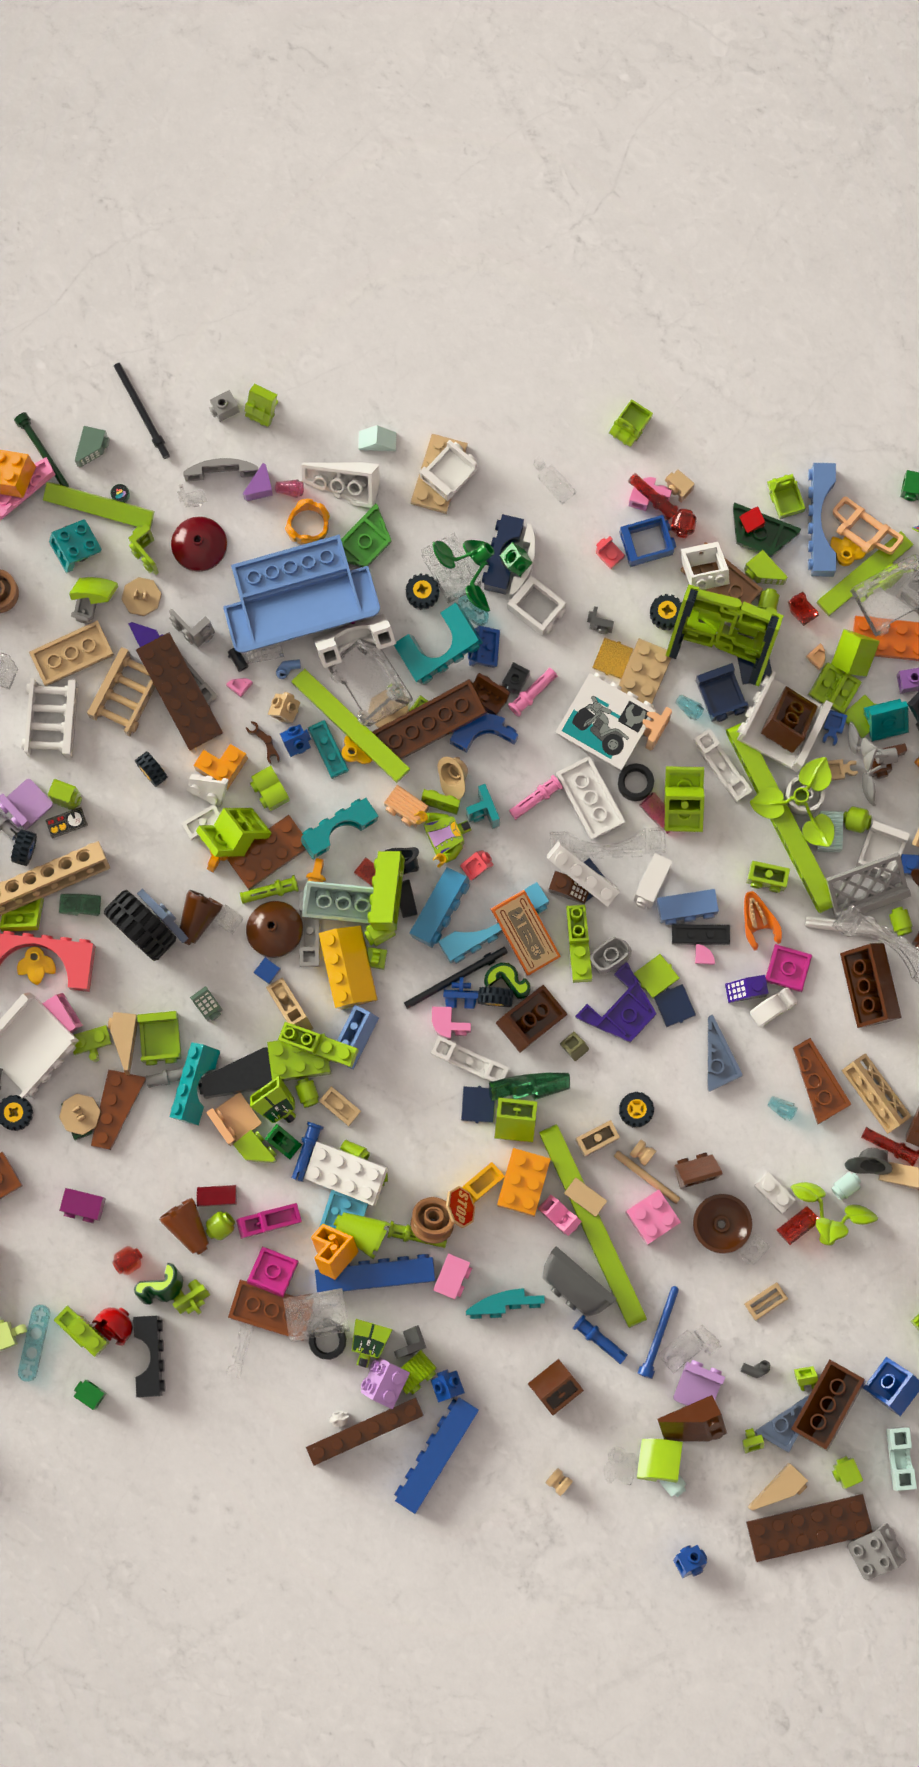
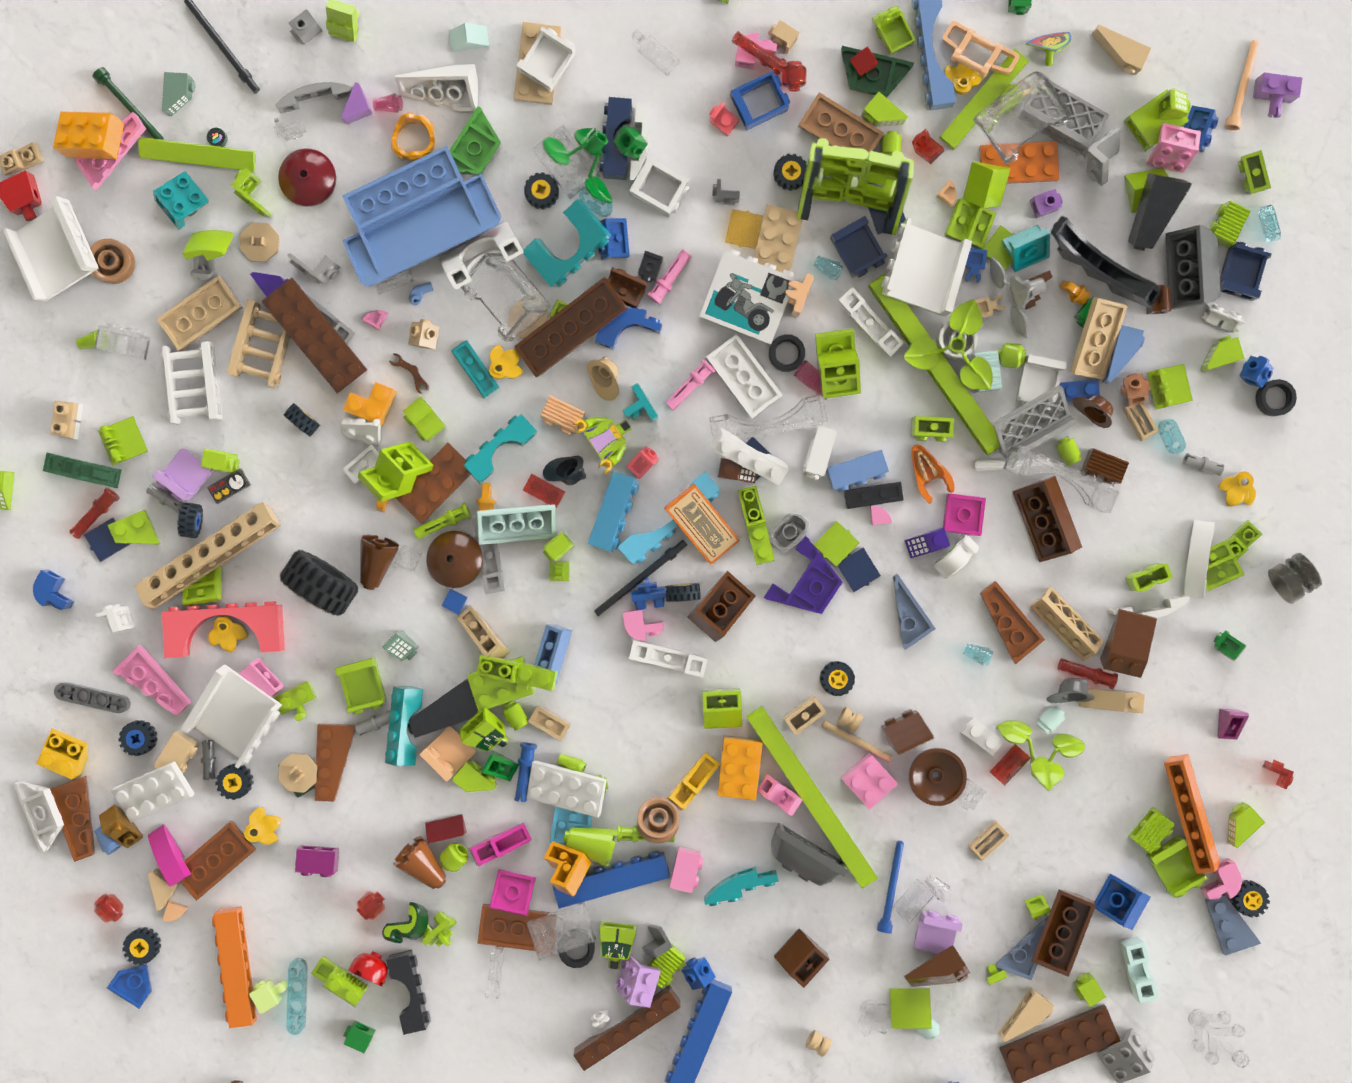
camera: 10 degrees left, 10 degrees up
(36, 1164) = (264, 825): none -> yellow plate
(79, 904) = (257, 566): clear green slope -> none
(123, 1031) = (325, 689): tan slope -> none
(164, 914) = (340, 567): sand blue wing -> none
(238, 660) = (368, 292): black pin -> none
(296, 740) = (441, 366): blue brick -> none
(348, 967) = (533, 586): yellow slope -> none
(350, 725) = (492, 342): lime tile -> none
(387, 890) = (557, 508): lime brick -> none
(407, 901) = (578, 509): black tyre -> none
(441, 802) = (602, 405): lime plate -> none
(460, 1207) = (683, 806): piece -> none
(477, 1105) = (683, 697): dark blue piece -> none
(510, 976) = (694, 568): dark green animal -> none
(537, 1085) = (735, 671): clear green slope -> none
(574, 1046) = (767, 625): olive slope -> none
(585, 1197) = (802, 774): tan tile -> none
(593, 1334) = (828, 900): blue pin -> none
(710, 554) = (827, 103): white window -> none
(756, 1371) = (988, 908): dark grey arm -> none
(789, 720) = (931, 265): reddish brown slope -> none

